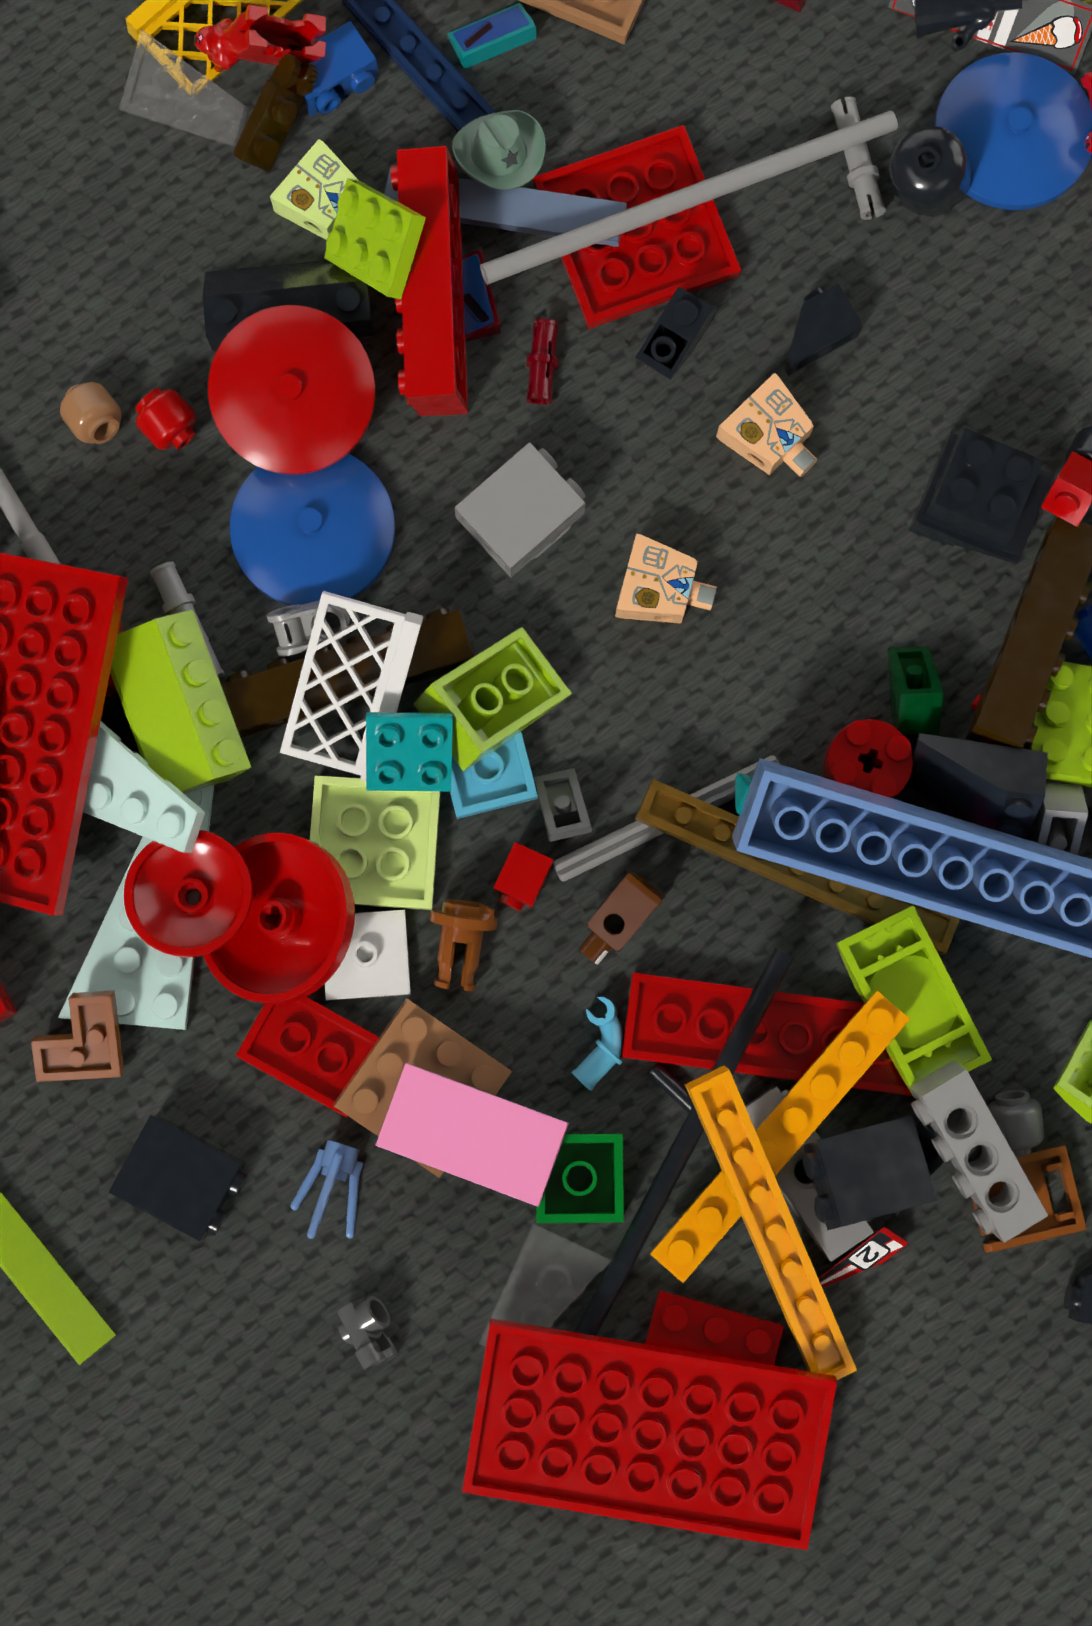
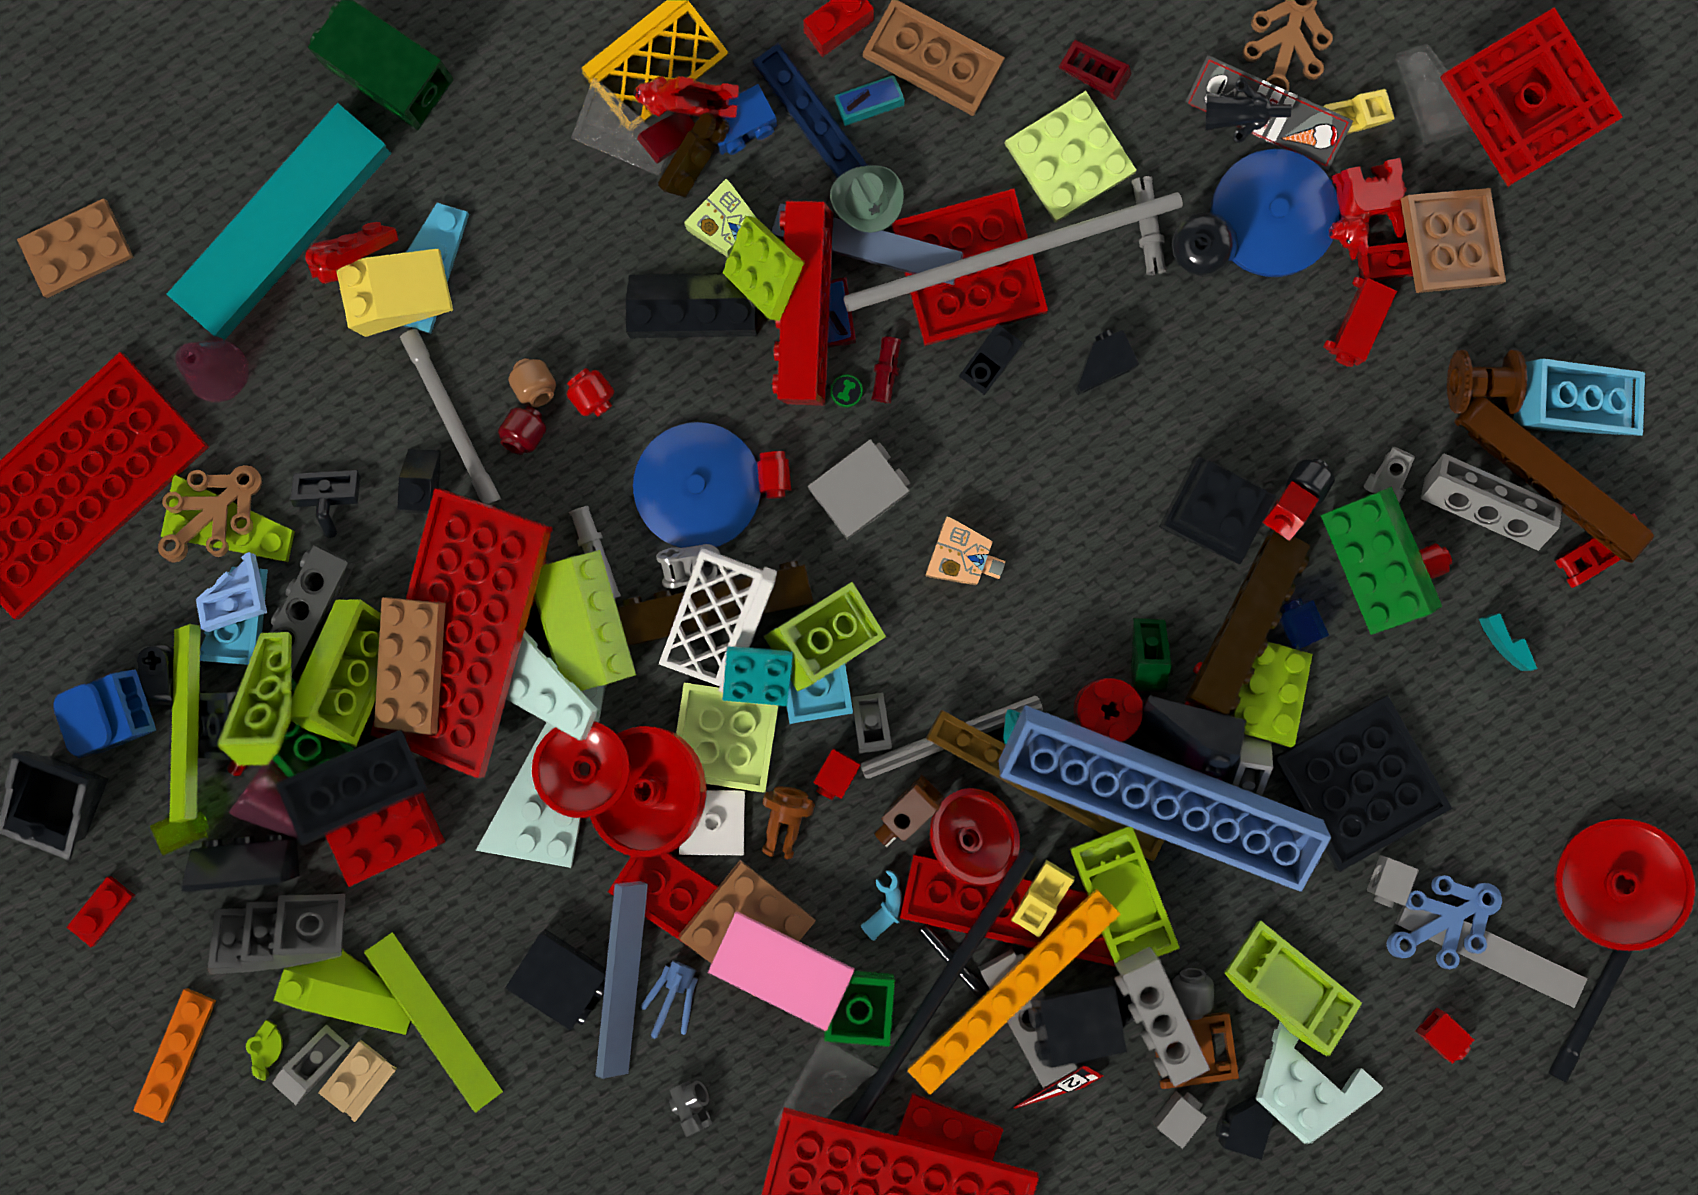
camera: 10 degrees right, 5 degrees up
(81, 474) = (522, 430): none -> dark red head
(92, 1048) = (498, 877): dark orange plate -> none
(236, 94) = (665, 136): none -> dark red slope
(262, 1168) = (621, 979): none -> sand blue tile
(291, 390) = (689, 381): red dish -> none
(410, 502) = (774, 474): none -> red brick
(494, 393) = (846, 391): none -> tile
(724, 929) = (990, 834): none -> red dish
(750, 83) = (1070, 156): none -> yellowish green plate
(769, 1223) = (999, 1058): light orange plate -> none
(770, 429) = (1059, 440): light nougat torso -> none
(806, 1013) = (1042, 898): none -> light yellow slope
(1016, 1288) = (1180, 1118): none -> light grey brick

